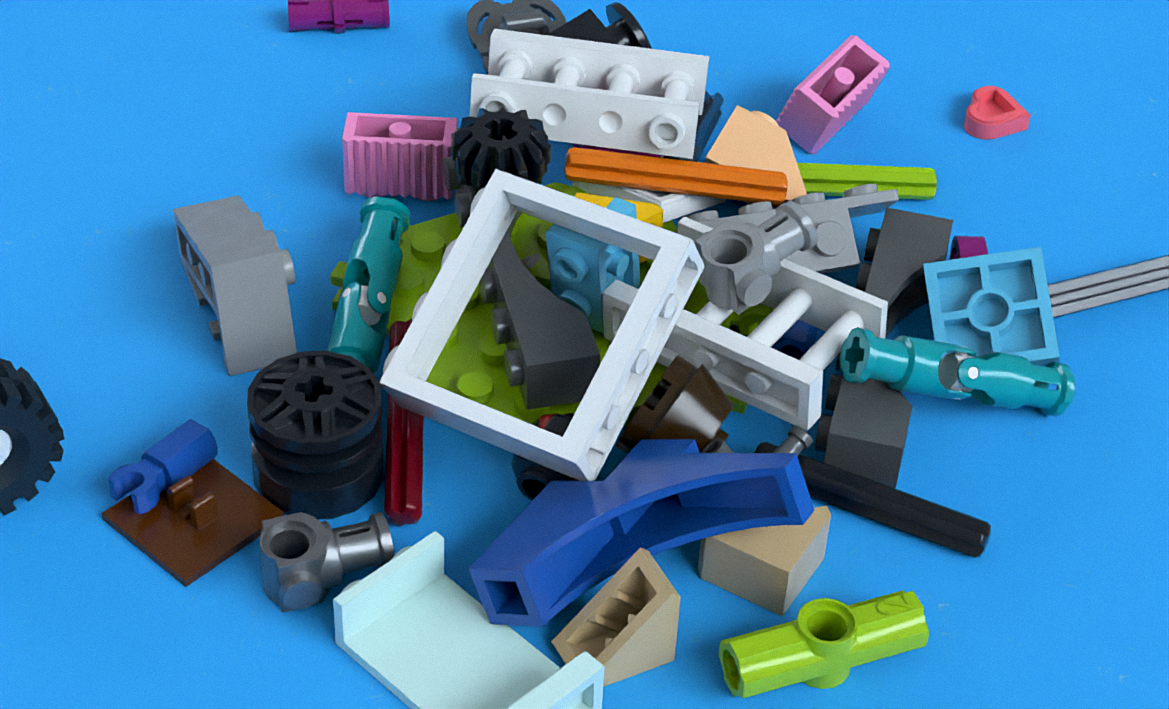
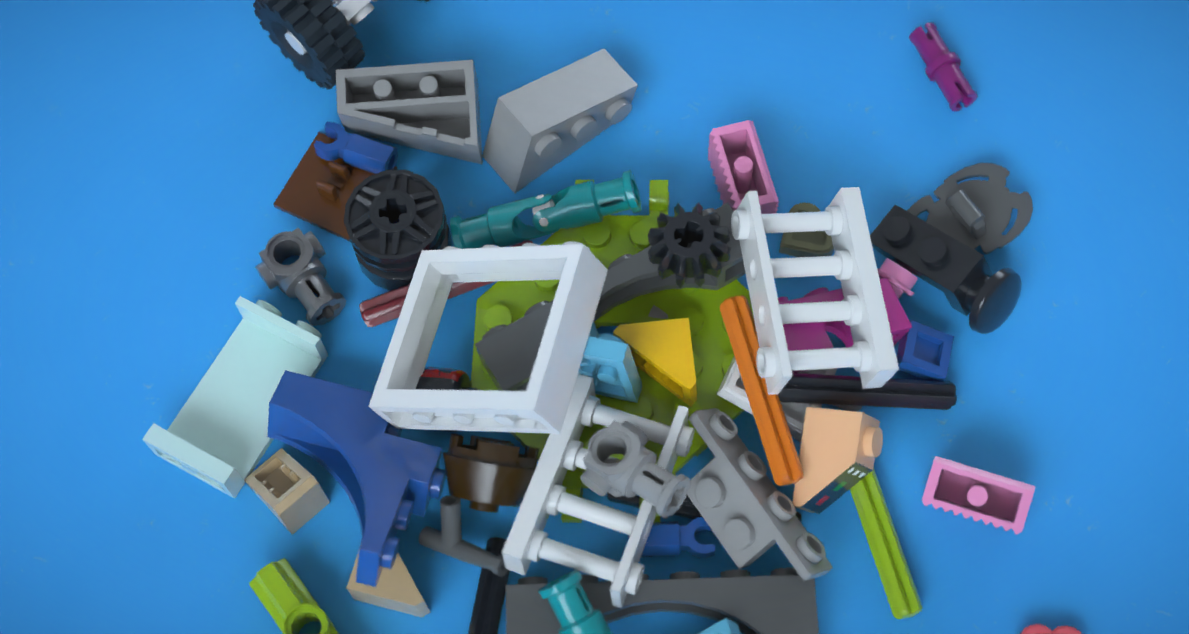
camera: 80 degrees right, 25 degrees up
(146, 382) = (414, 106): none -> light grey wedge

